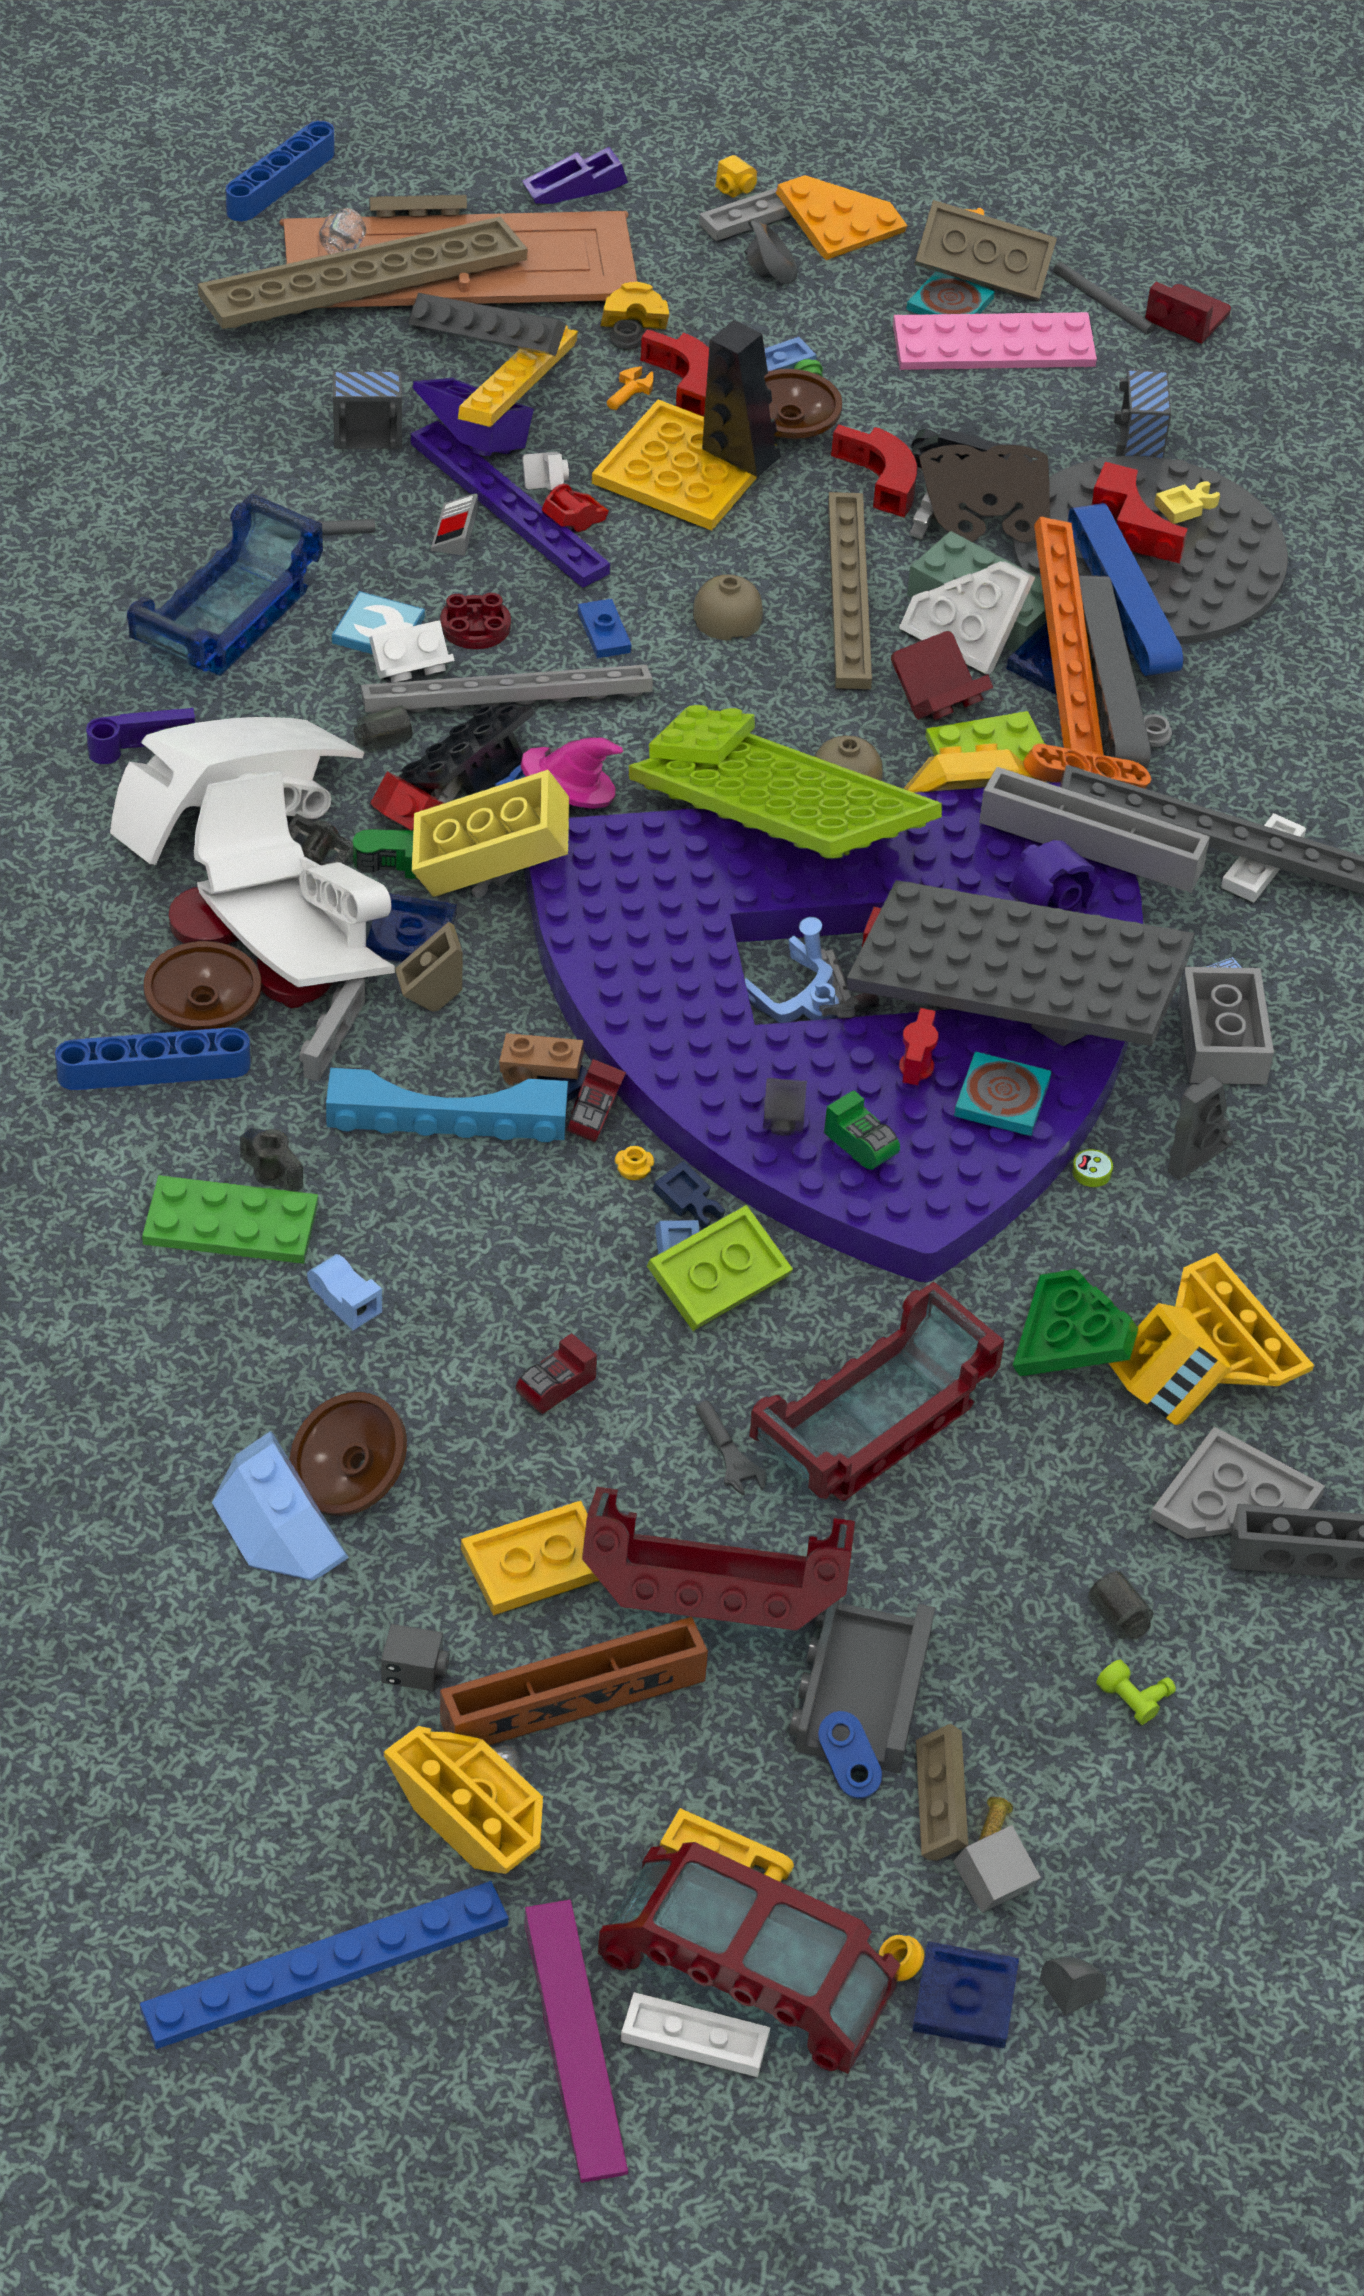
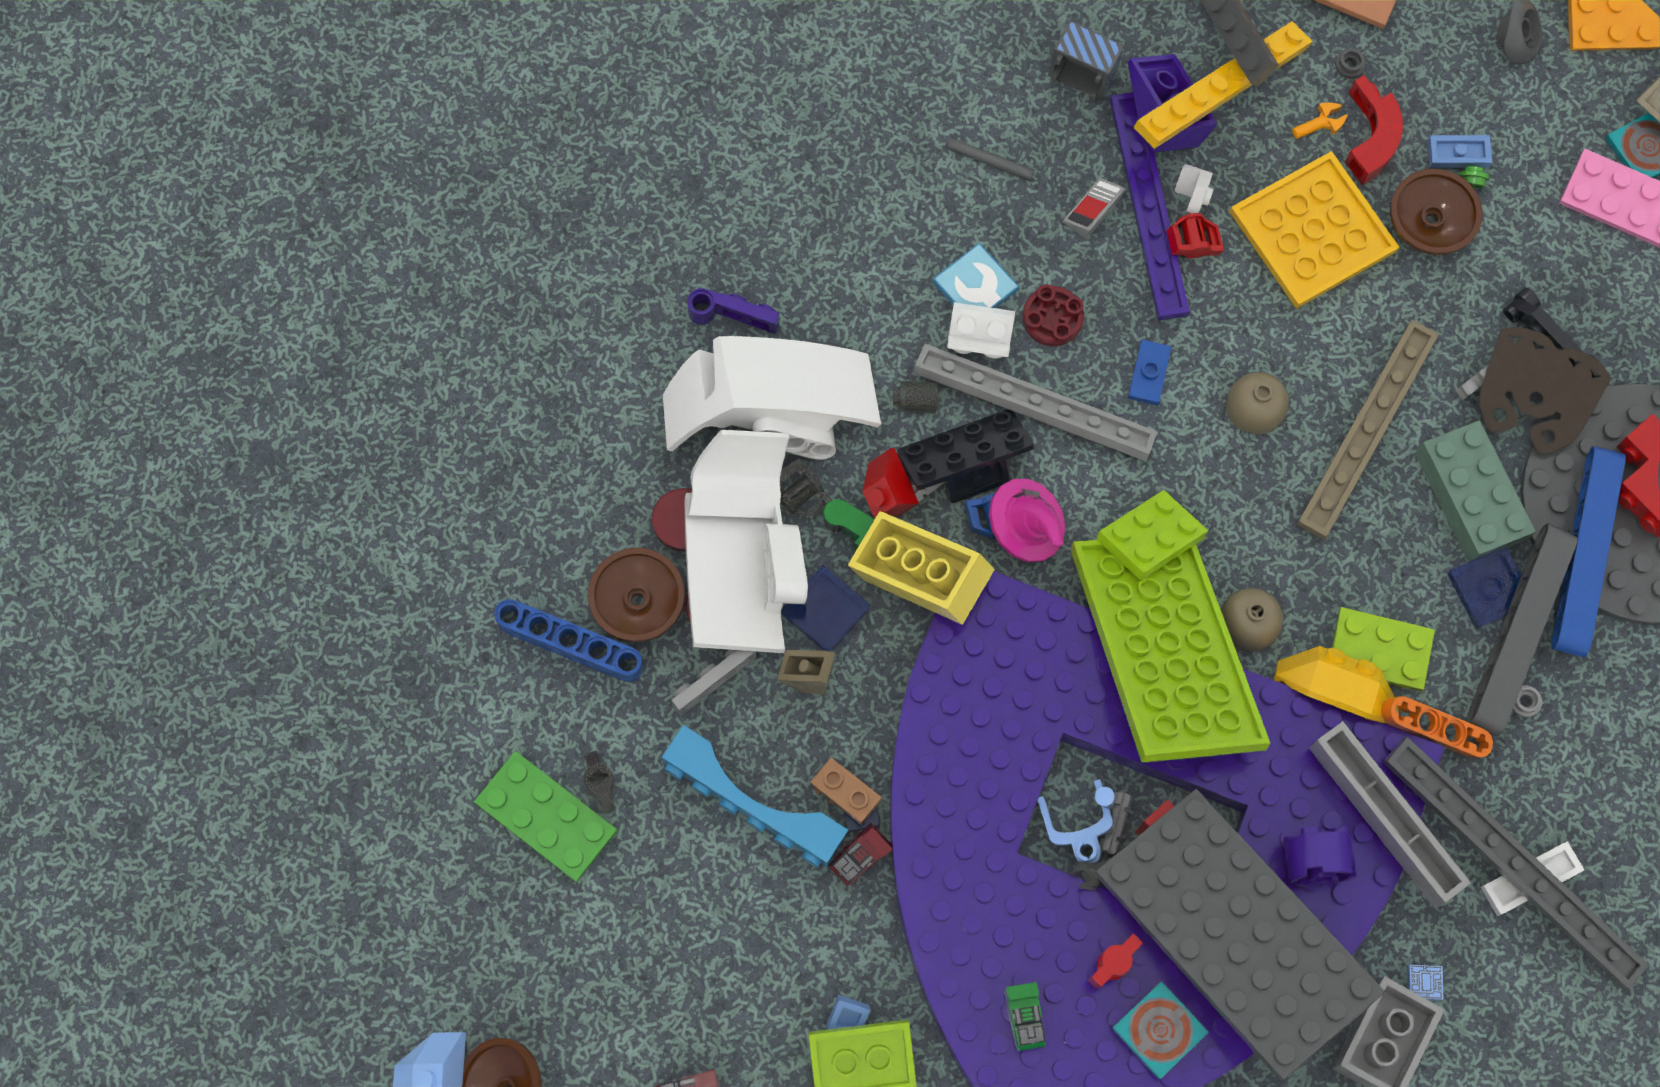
camera: 30 degrees right, 25 degrees up
(237, 591) = (873, 205): windscreen -> none
(345, 1291) = (585, 930): light blue leg -> none
(634, 1169) = (866, 928): yellow plate -> none
(636, 302) = (1374, 37): yellow cylinder -> none
(686, 1191) = (880, 971): dark blue plate -> none
(738, 401) = (1375, 215): black wedge -> none
(784, 1106) = (981, 960): clear smoke bracket -> none
(887, 458) = (1484, 311): red arch -> none
(937, 676) = (1378, 566): dark red bracket -> none
(975, 609) = (1441, 517): white plate -> none
(1068, 636) = (1503, 587): orange plate -> none

